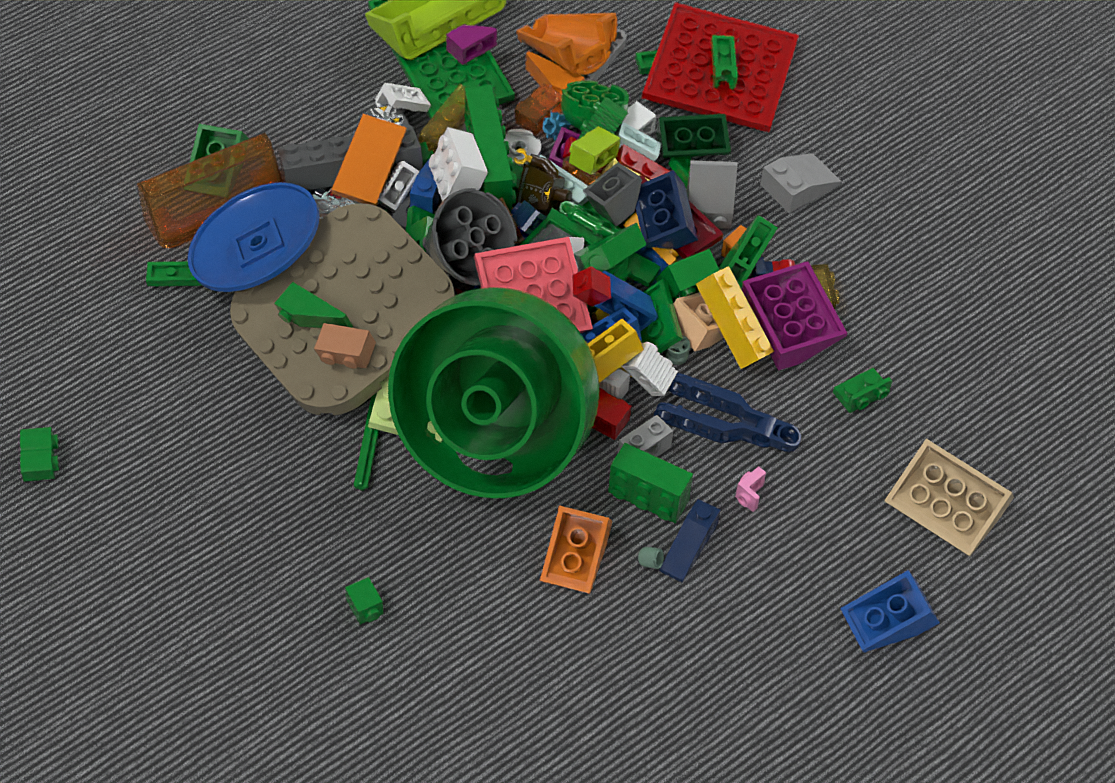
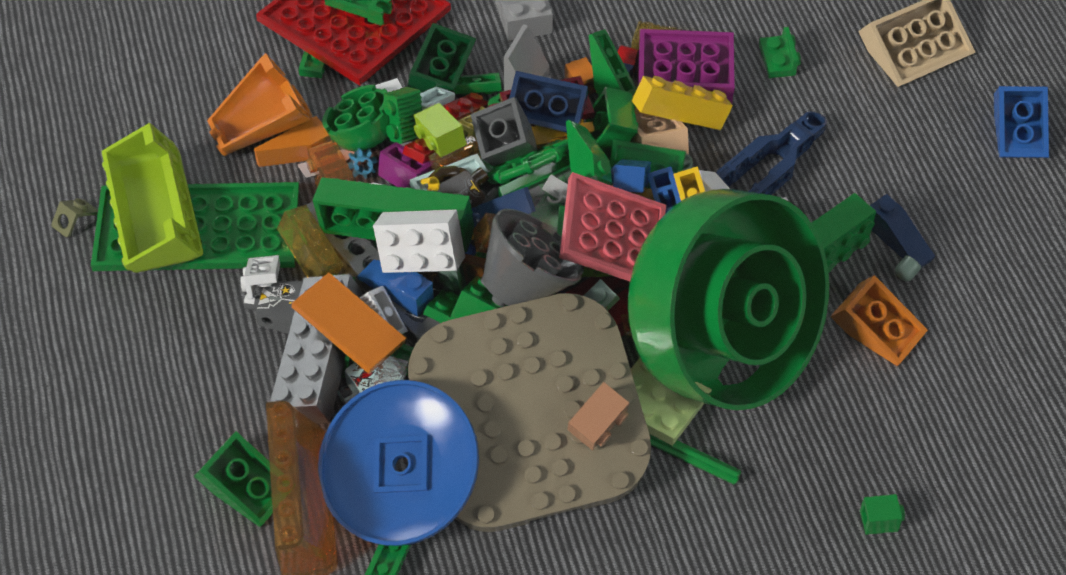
camera: 65 degrees left, 0 degrees up
(308, 310) = (529, 438): green slope -> none
(470, 41) = (213, 193): magenta slope -> none
(591, 286) = (633, 179): red brick -> none
(748, 485) = (857, 171): bright pink bracket -> none

